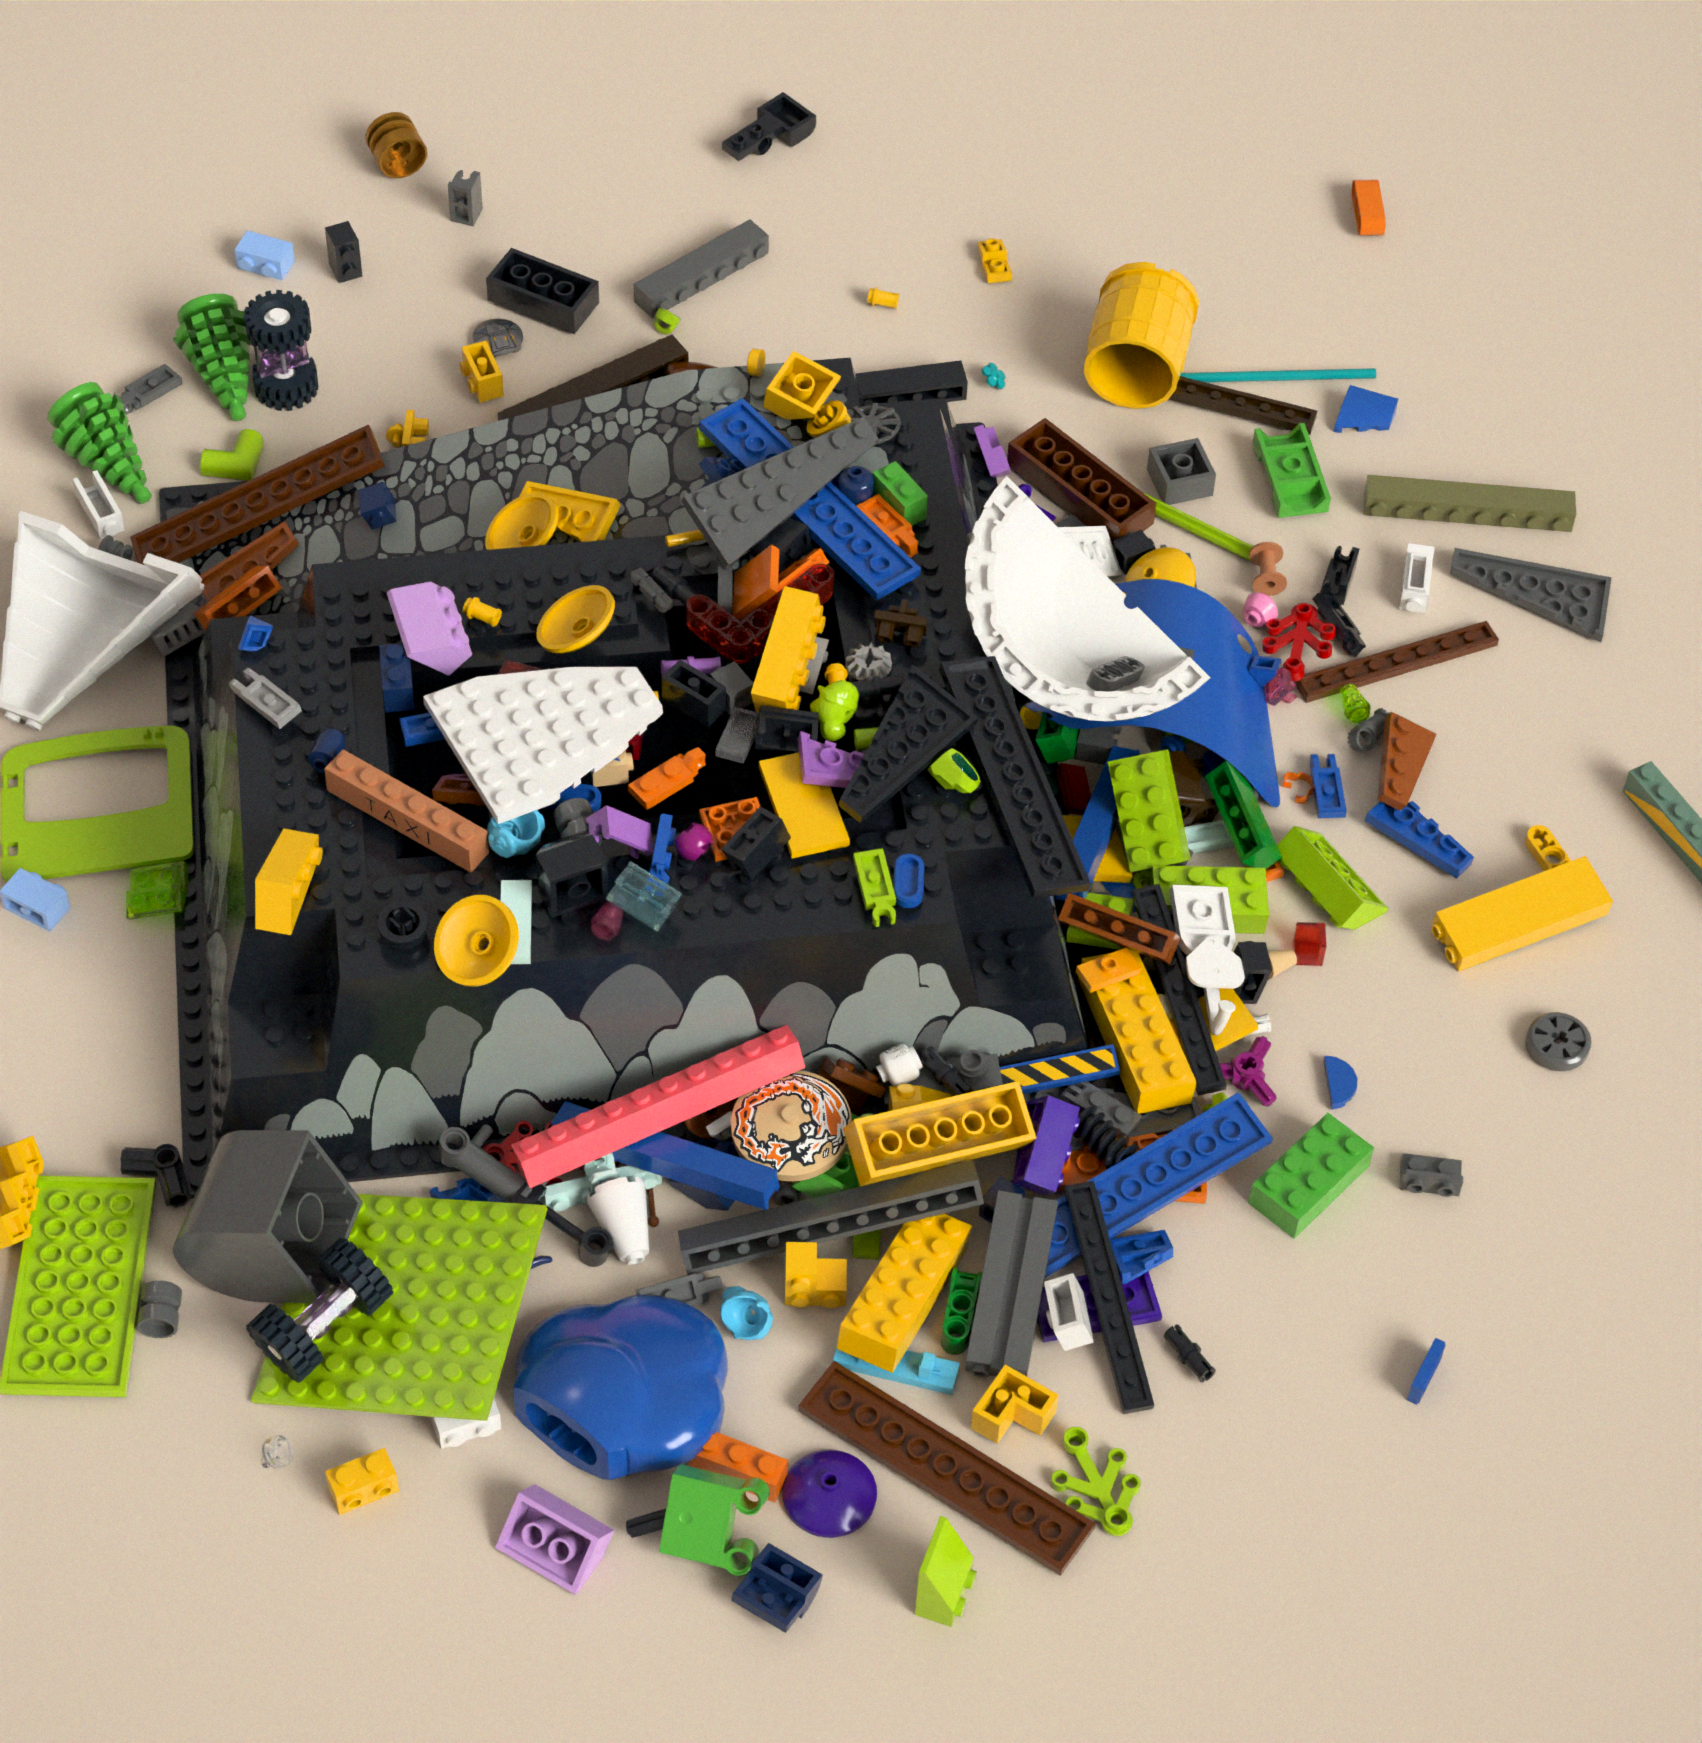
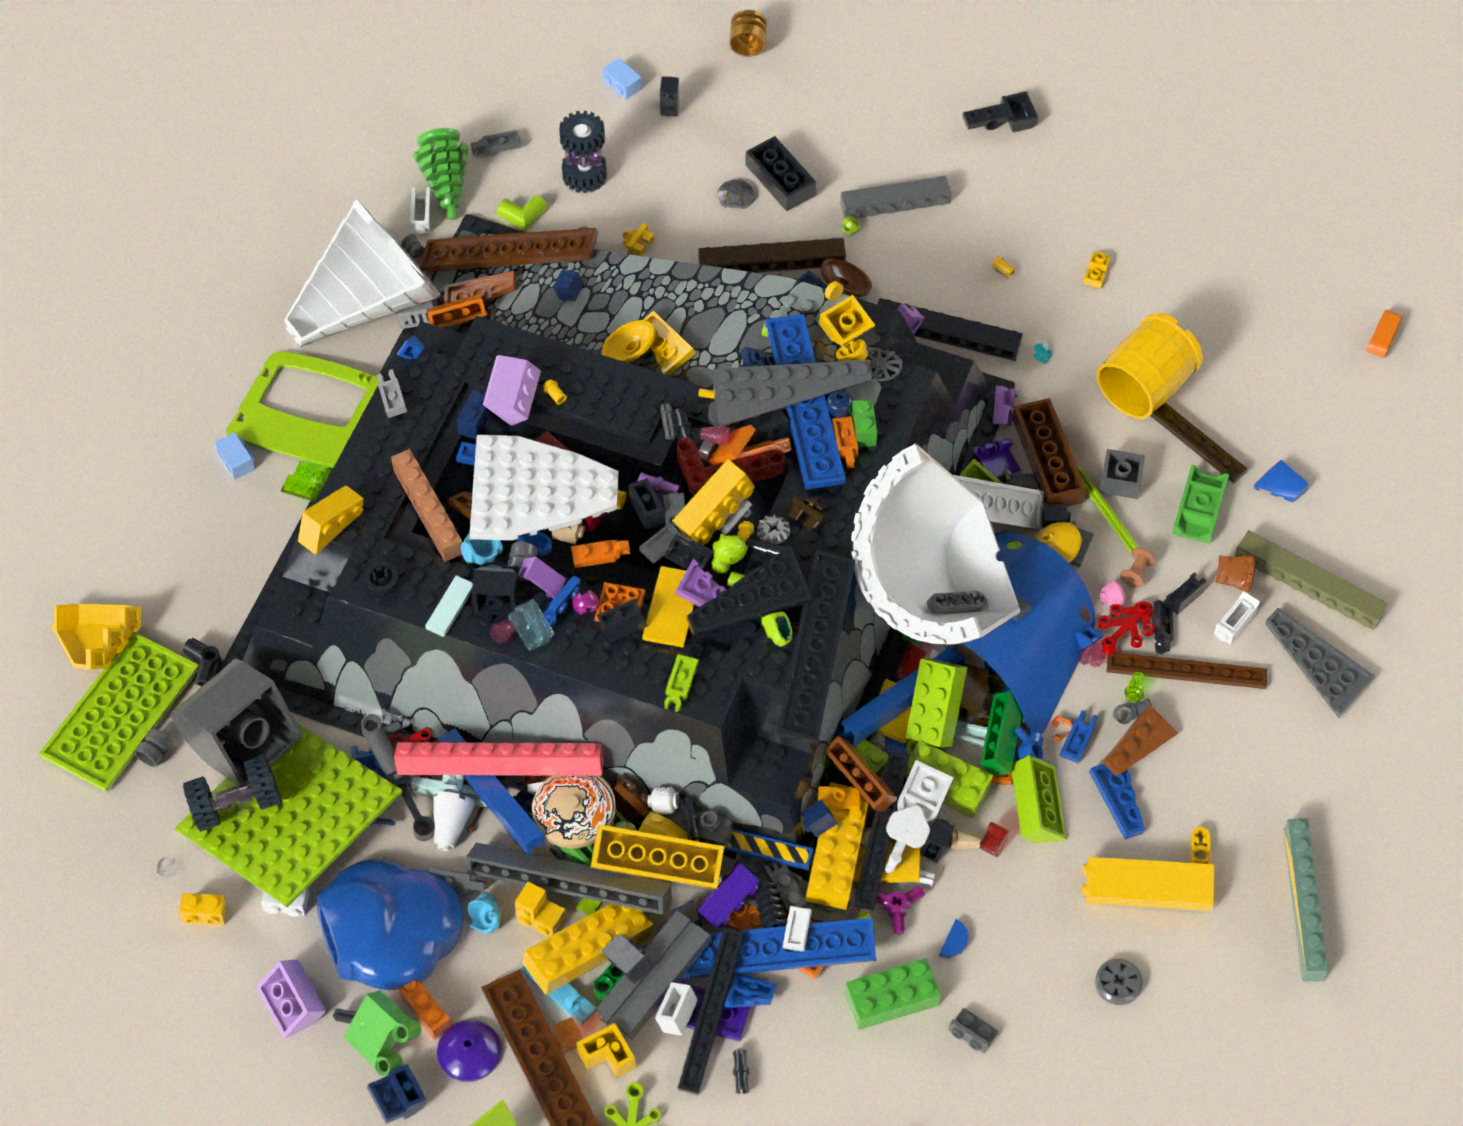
camera: 30 degrees right, 5 degrees up
(217, 347) = (545, 134): bright green plant -> none
(326, 748) = (407, 441): dark blue brick -> none
(463, 935) = (414, 608): yellow dish -> none
(465, 198) = (769, 88): dark grey hinge -> none
(482, 372) = (707, 215): yellow brick -> none
(576, 619) = (604, 422): yellow dish -> none
(732, 575) = (717, 435): none -> clear pink cone
(908, 880) = (704, 687): blue tile -> none
(950, 1408) = (567, 1034): none -> clear orange brick
(972, 1276) = (627, 958): none -> brick
(1102, 1003) = (818, 818): none -> dark blue brick
(1155, 1147) = (797, 928): none -> white tile
(1279, 817) = (1031, 744): none -> blue piece
(1285, 375) = (1240, 431): teal piece -> none
(1386, 525) = (1236, 572): none -> dark orange piece

